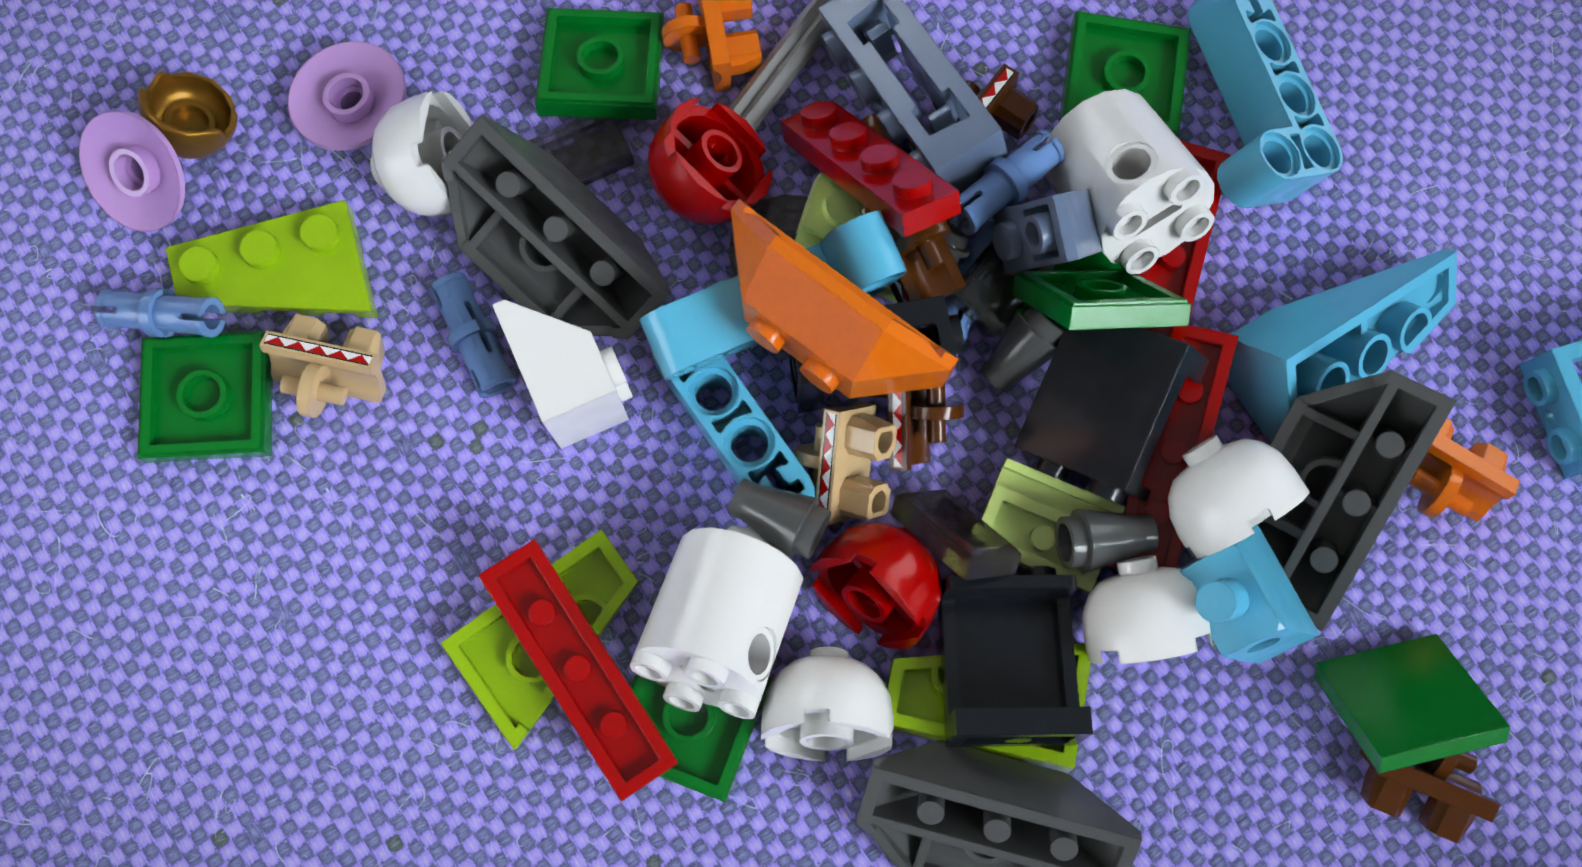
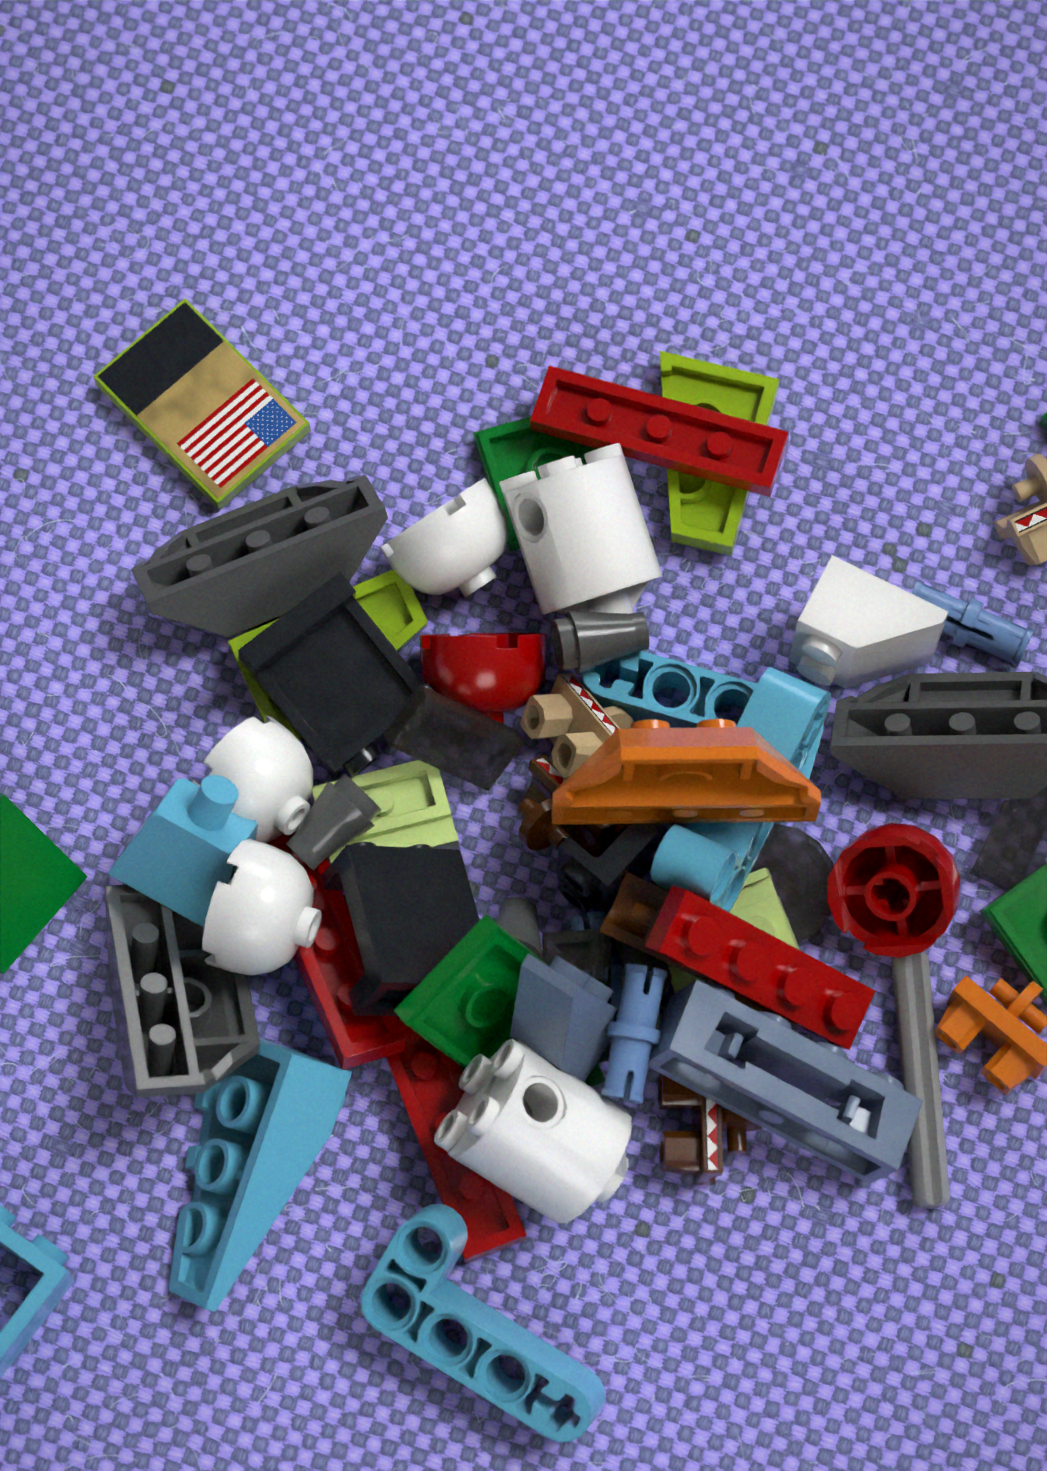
camera: 145 degrees right, 5 degrees down
(1127, 55) = (613, 1280): green tile -> none
(1462, 478) = (54, 1120): orange hips -> none

